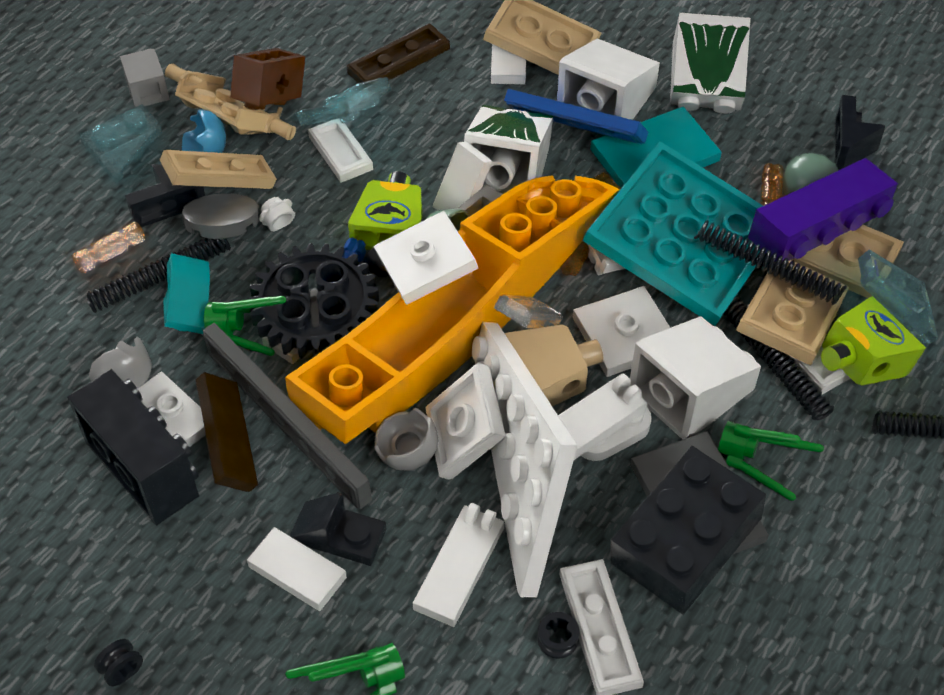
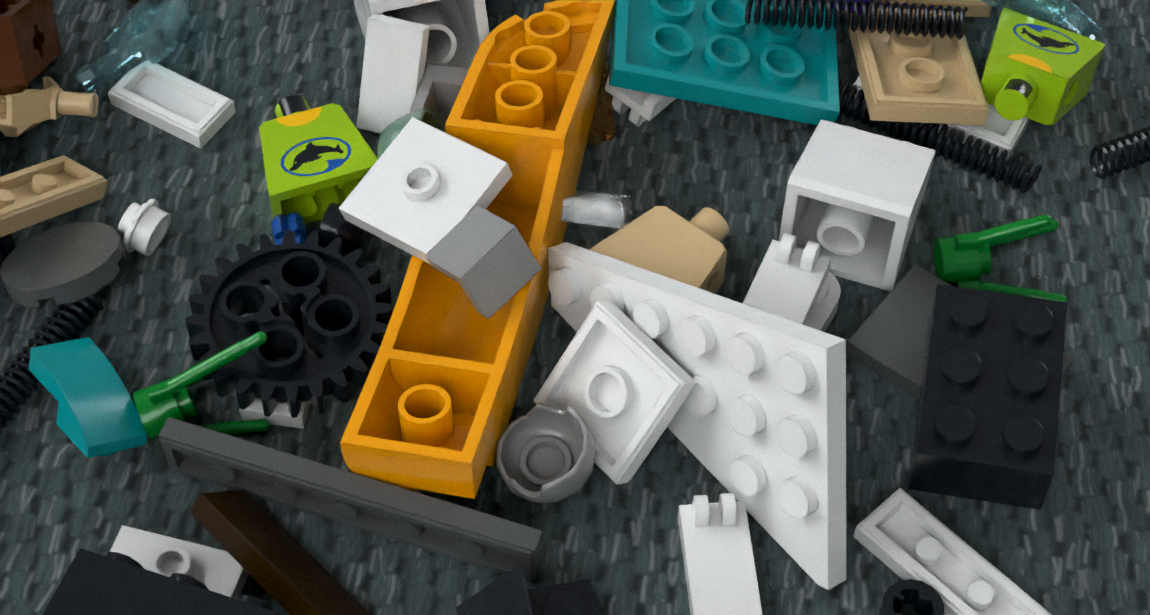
camera: 30 degrees left, 0 degrees up
(126, 362) = (56, 545): light grey hair -> none
(428, 311) = (485, 259): none -> light grey panel
(618, 325) = (723, 172): white plate -> none

